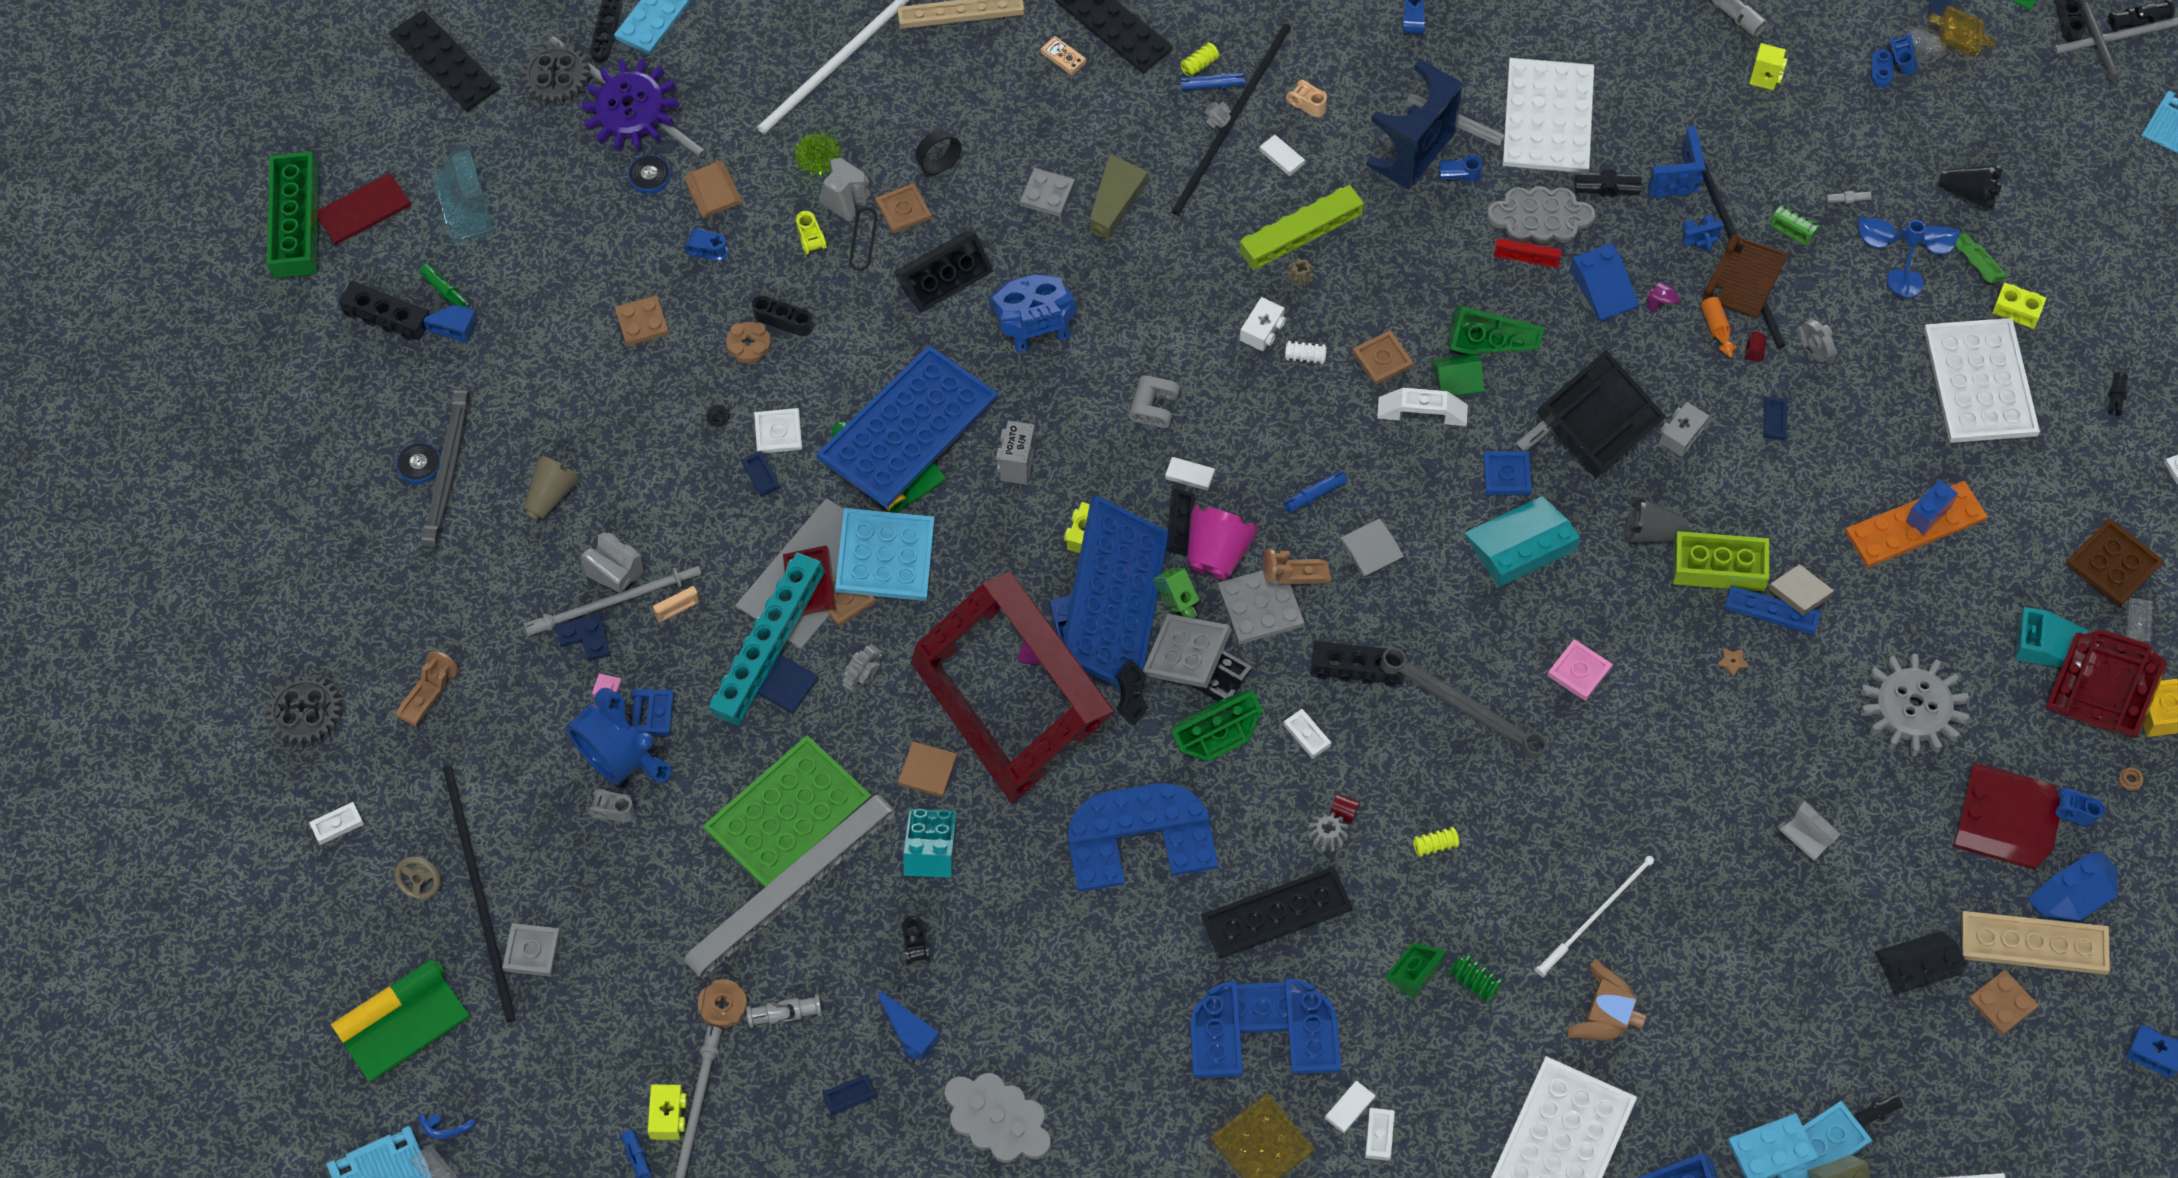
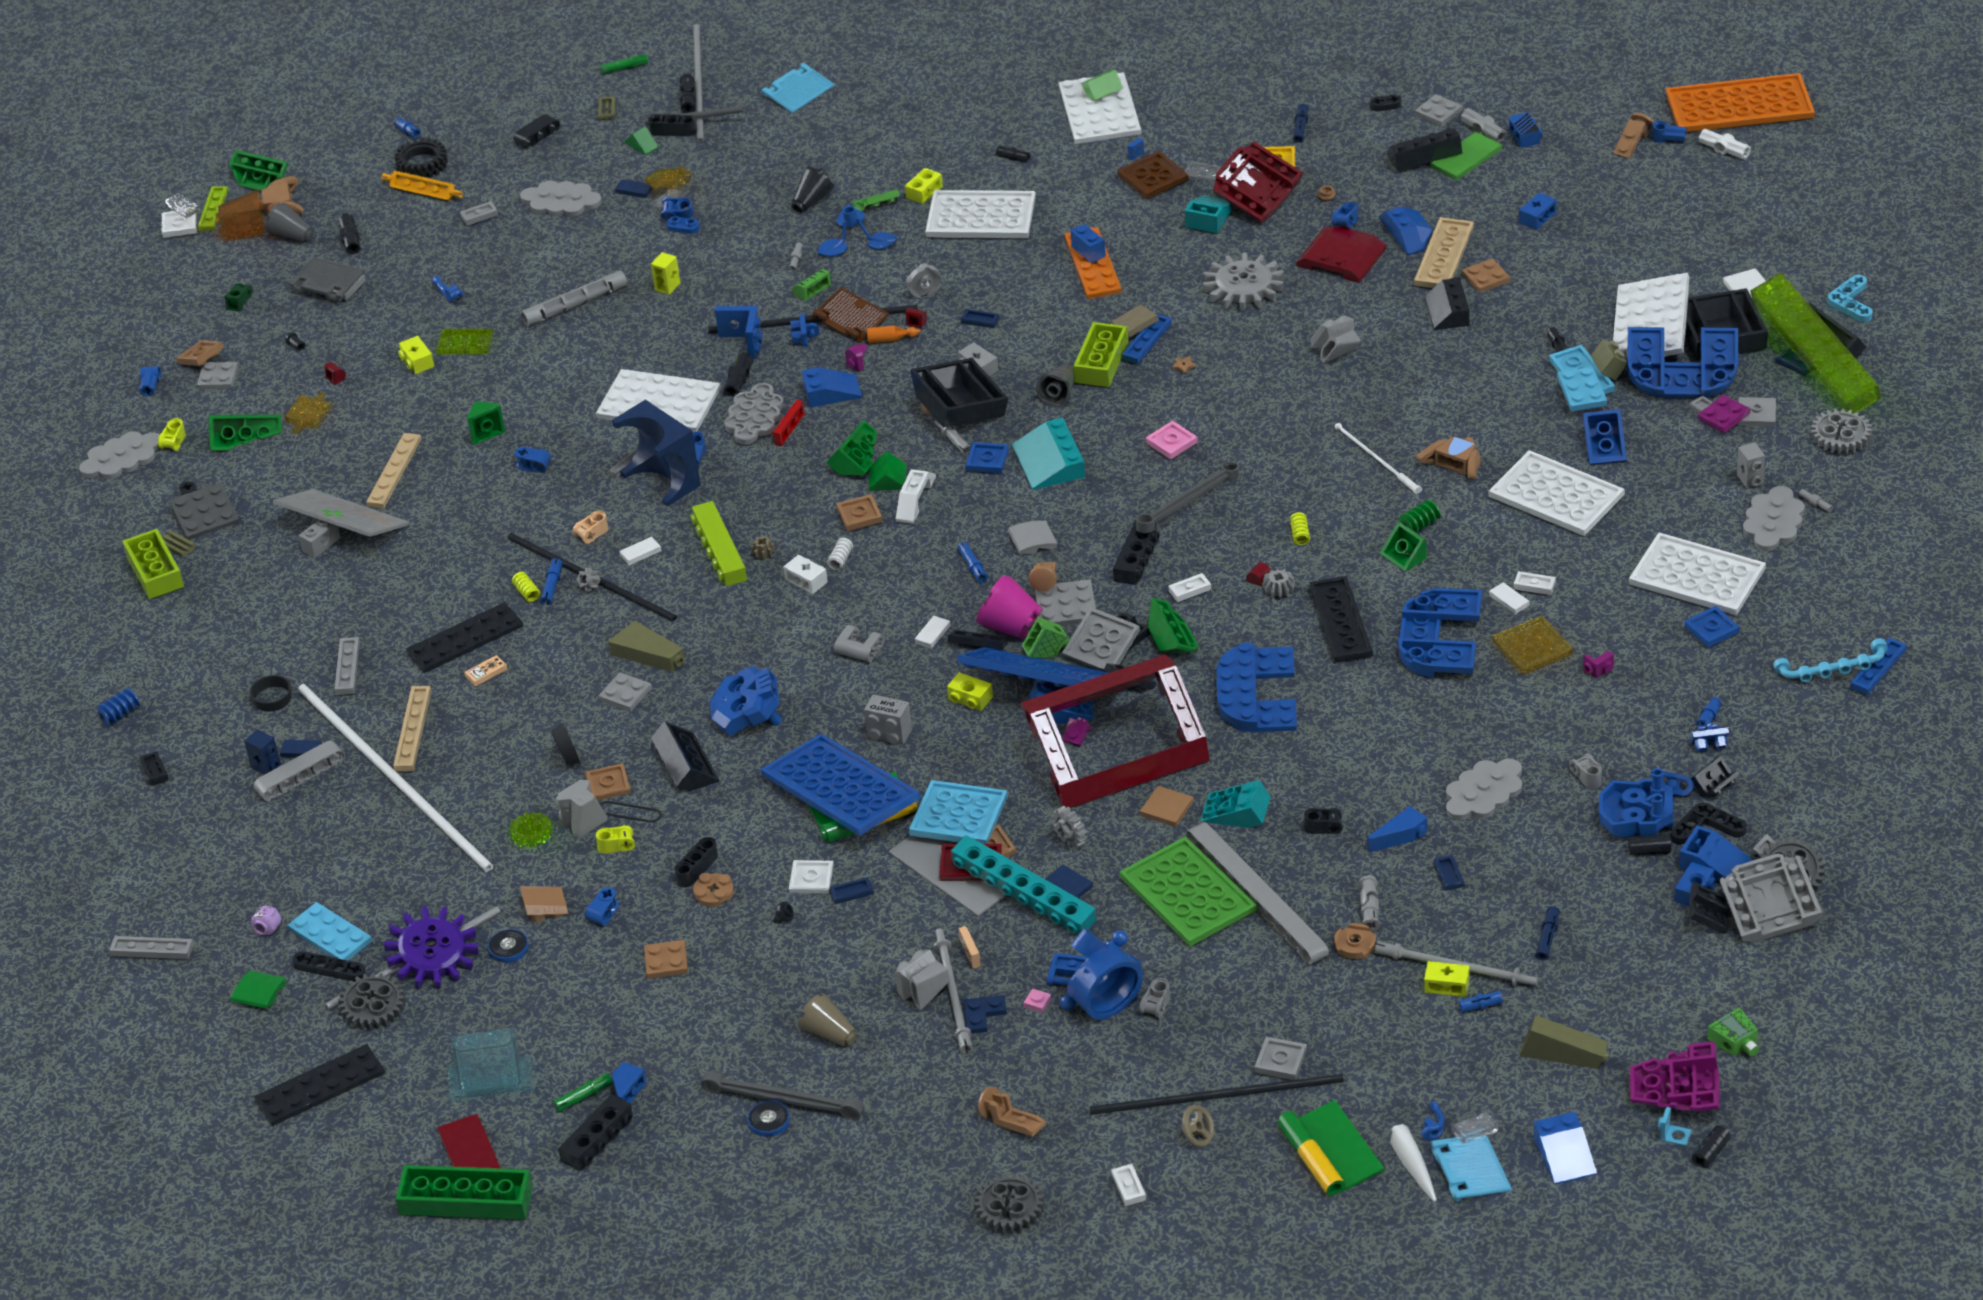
camera: 75 degrees left, 20 degrees down
(388, 1111) = (1411, 1158): none -> white piece
(2162, 532) = (1135, 148): none -> blue tile

